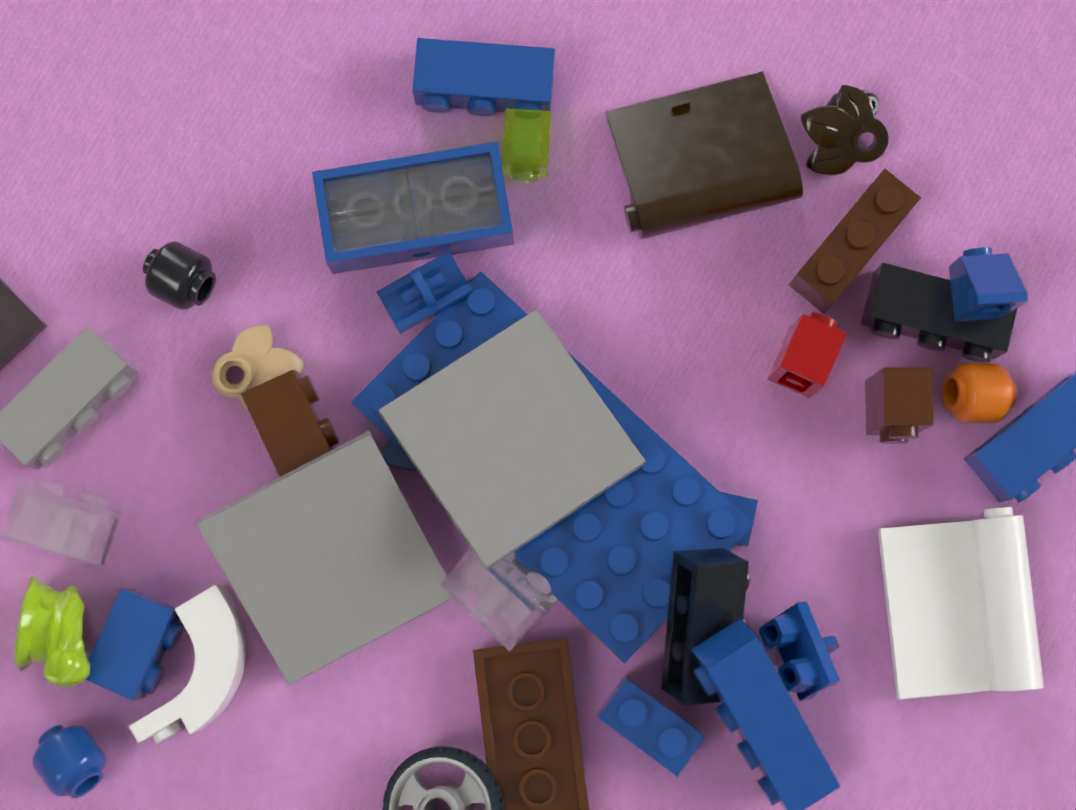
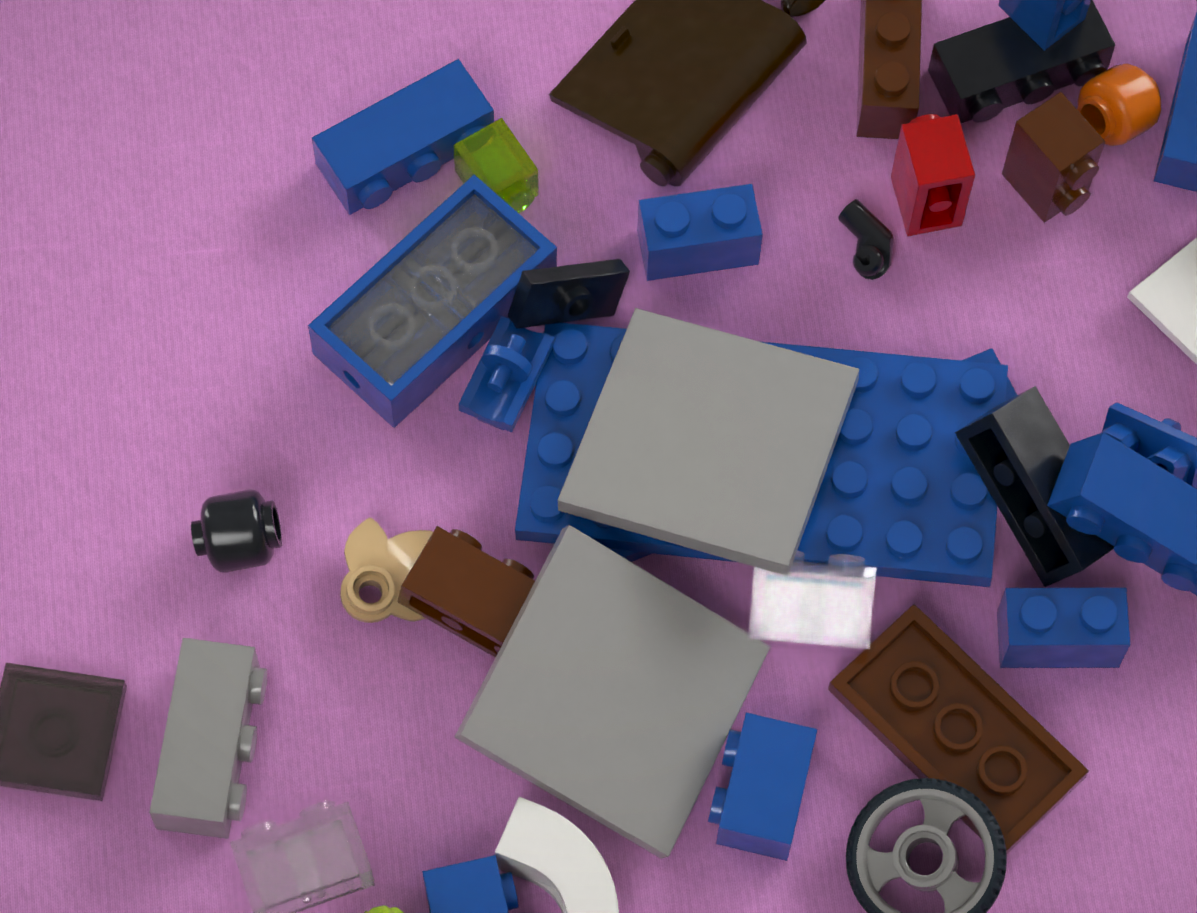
camera: 40 degrees left, 15 degrees down
(380, 686) = (764, 787): none -> blue brick
(503, 266) = (568, 293): none -> black plate
(624, 282) = (699, 232): none -> blue brick
(738, 369) = (874, 240): none -> black arm

